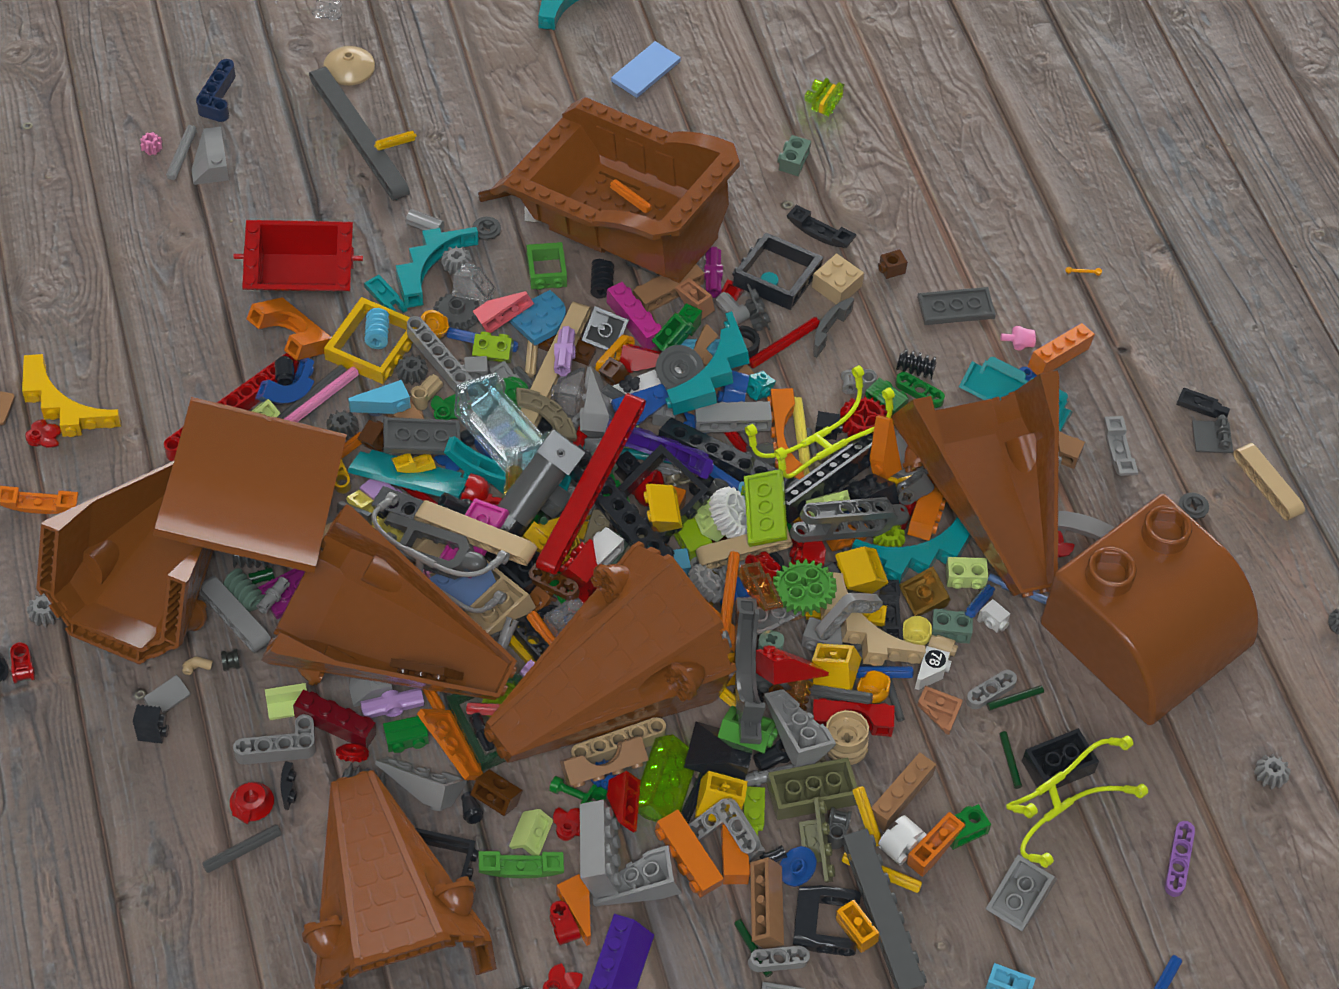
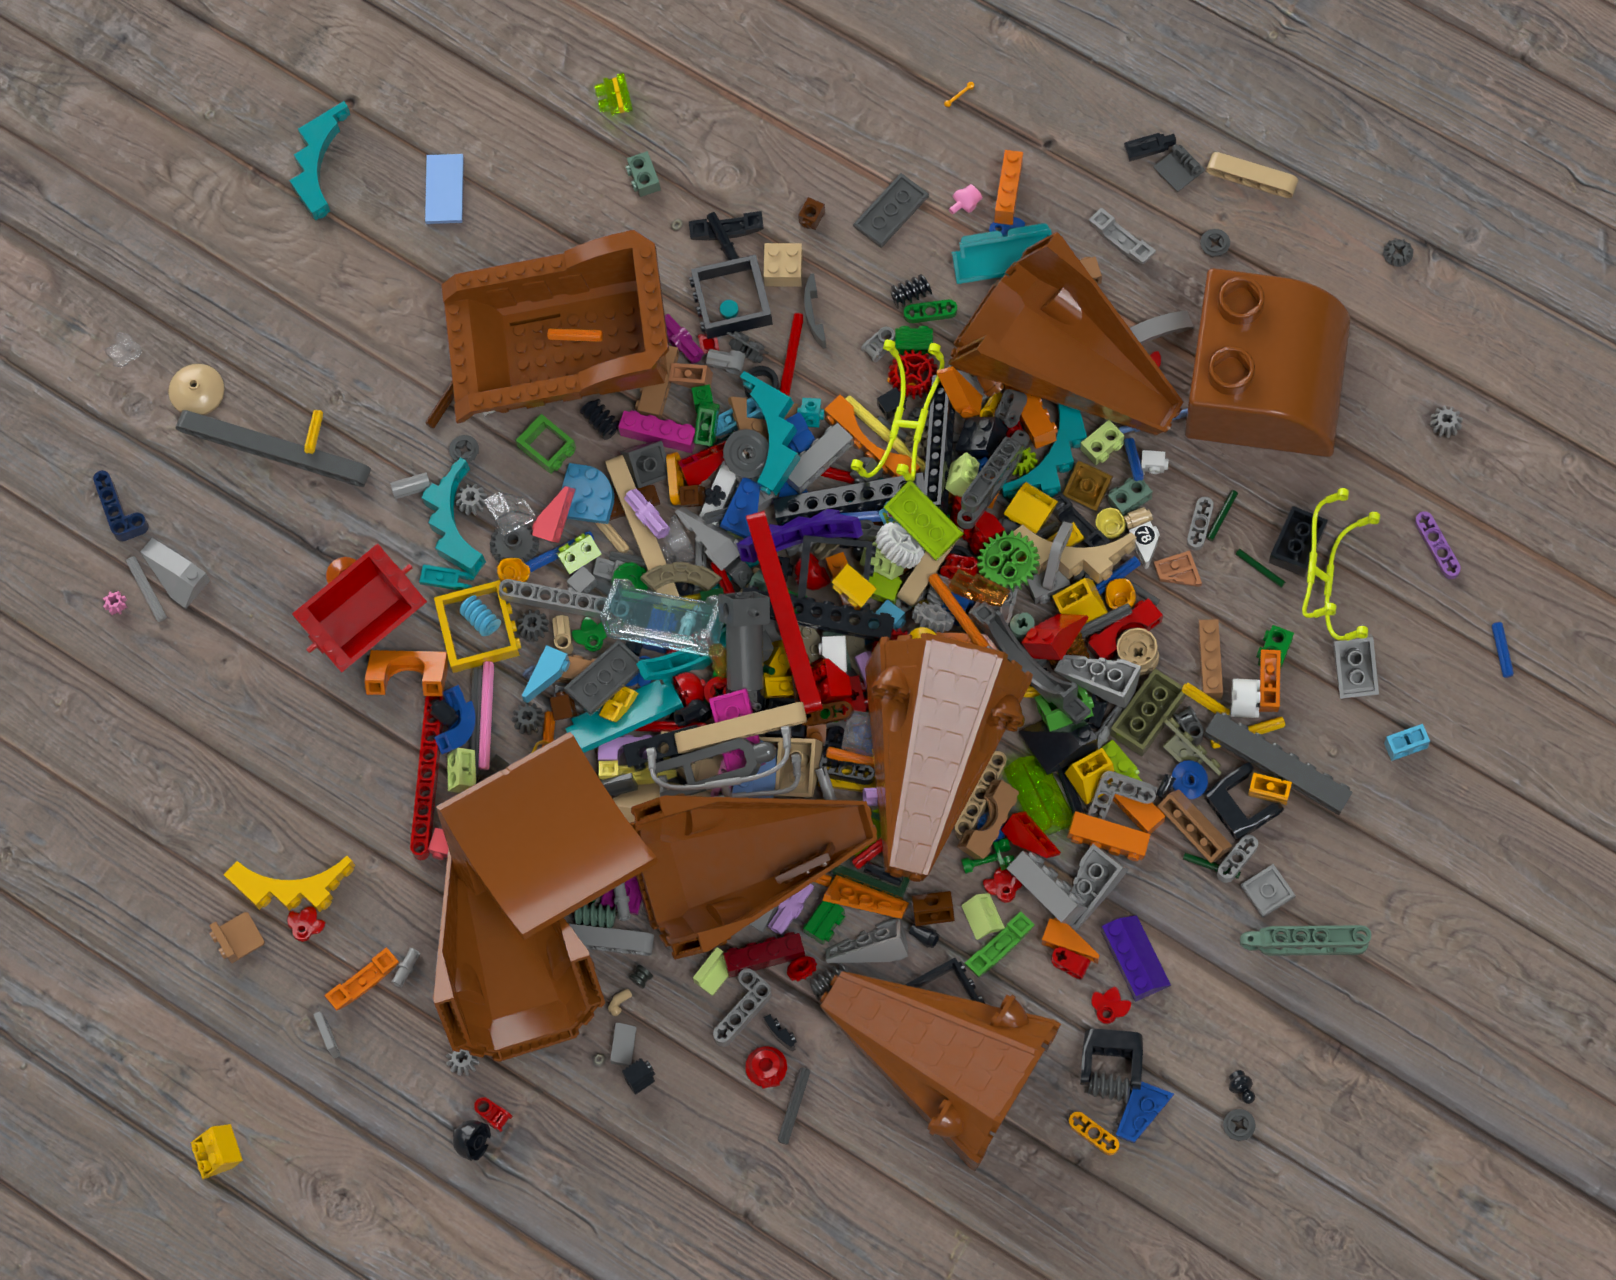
camera: 30 degrees left, 15 degrees up
(809, 238) = (726, 246): none -> black axle

